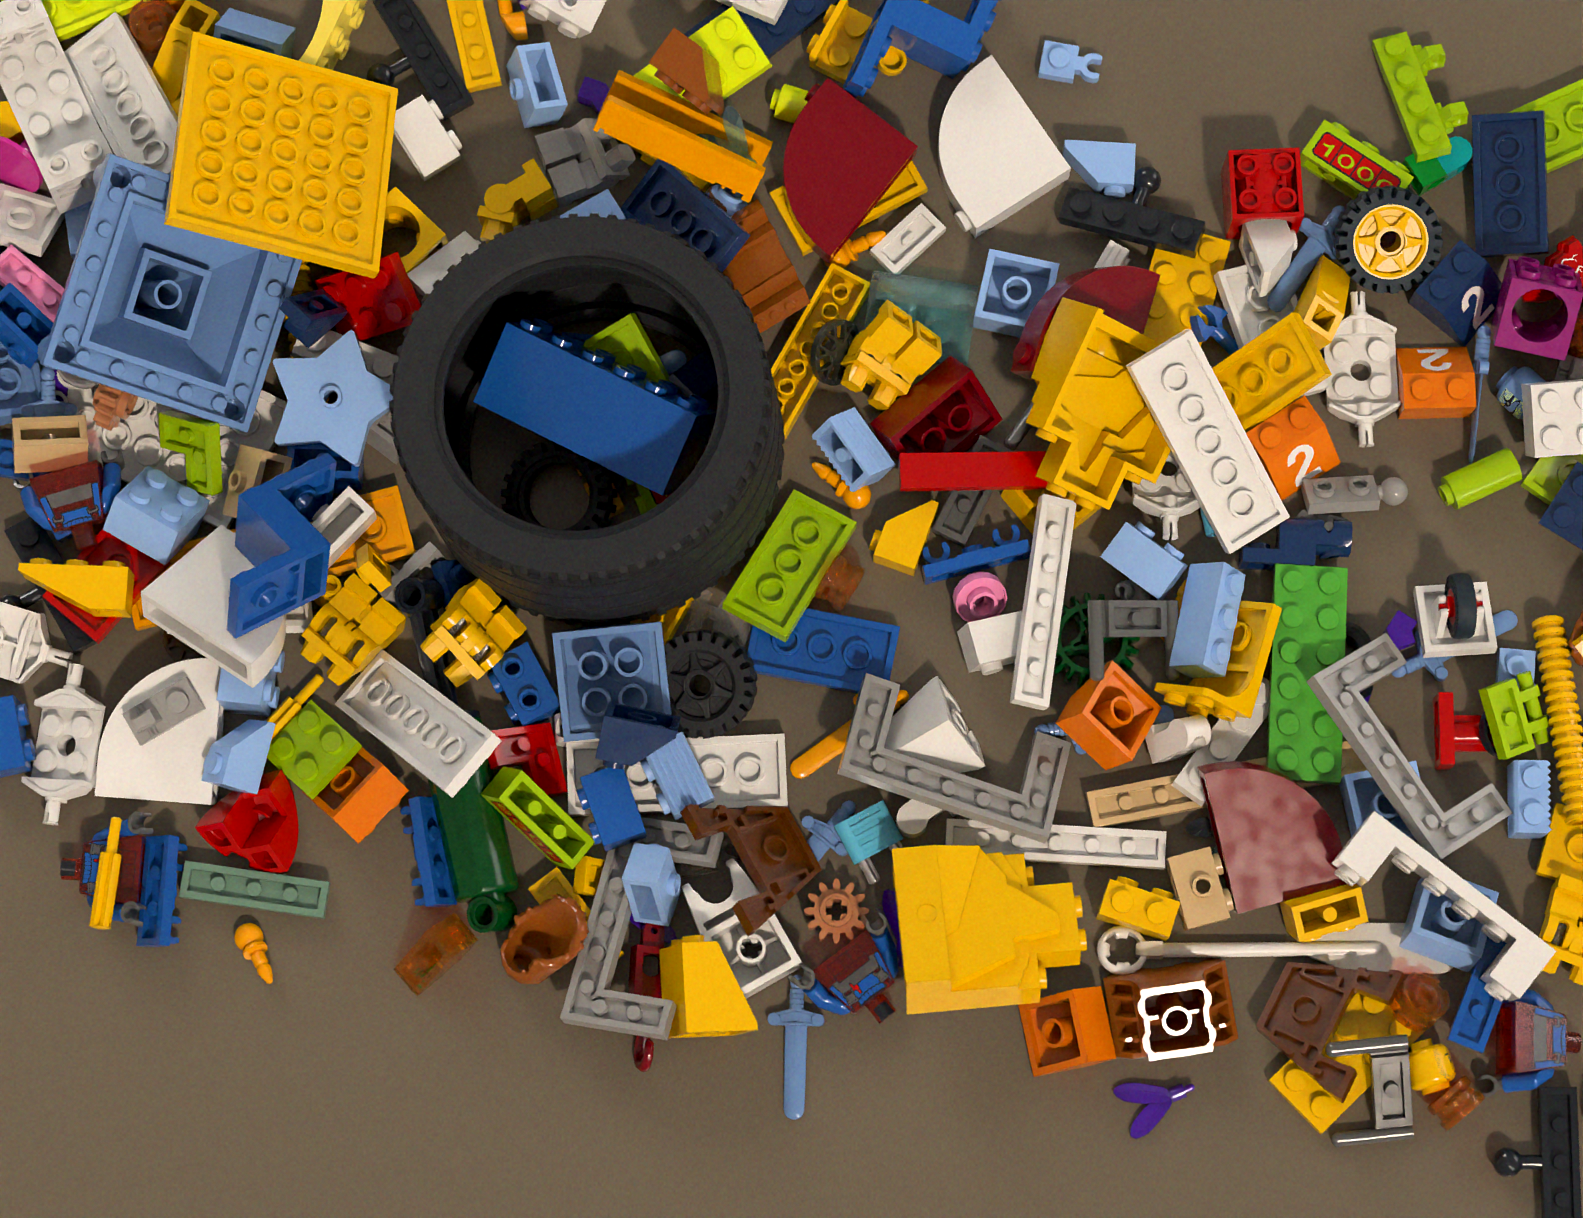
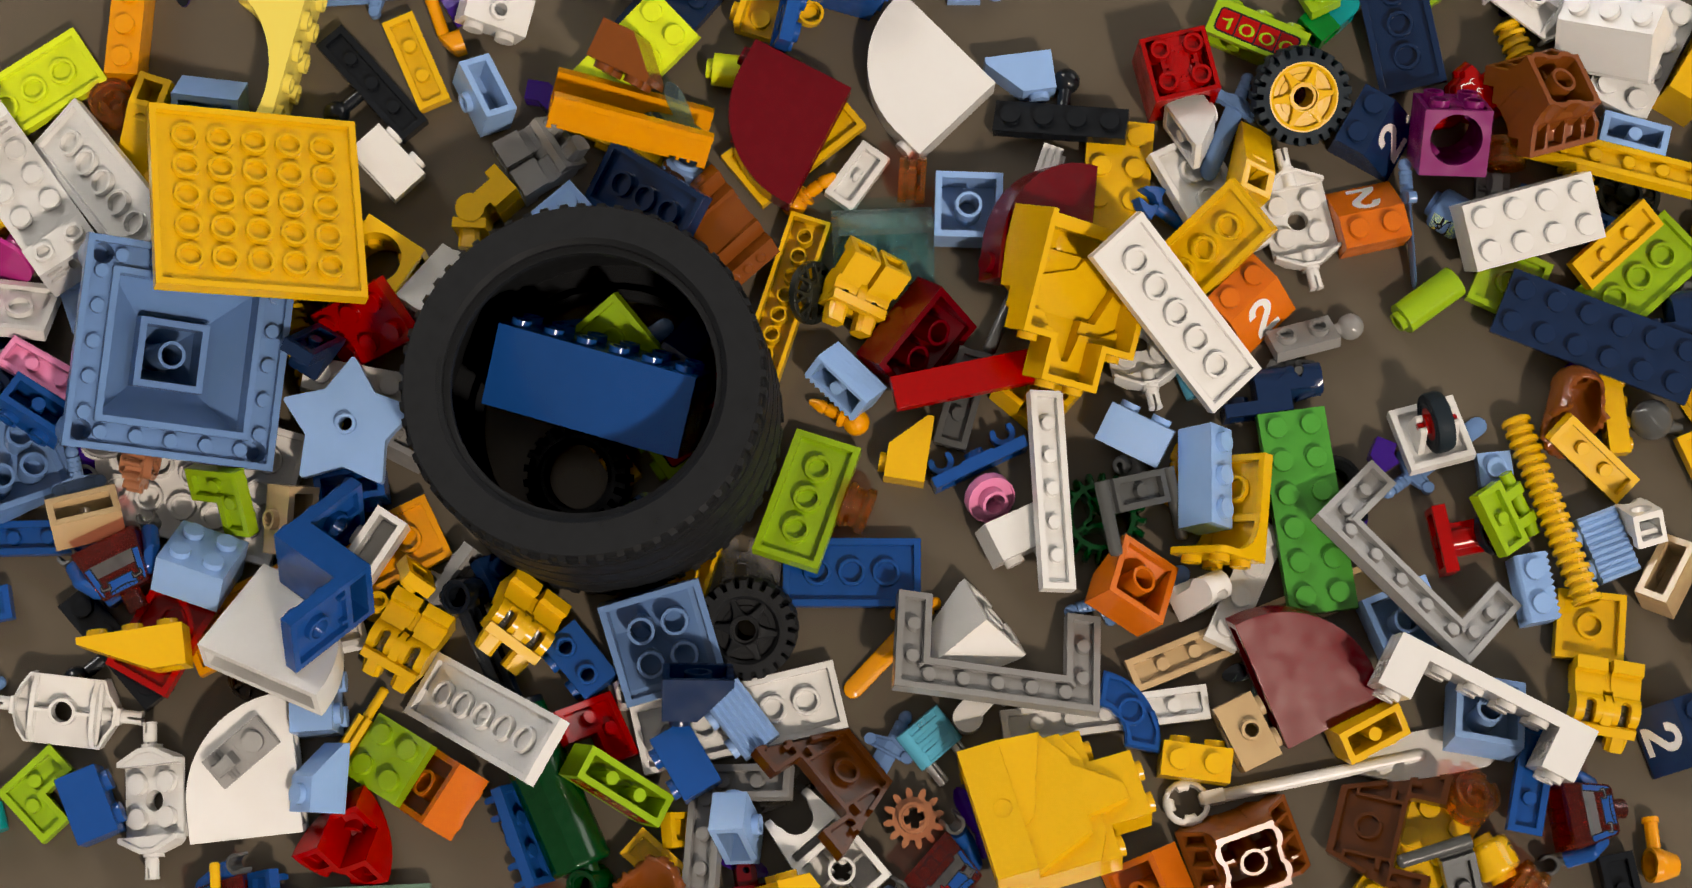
camera: 15 degrees left, 0 degrees up
(959, 253) = (907, 179): none -> clear orange wheel
(1084, 845) = (1132, 711): none -> blue tile

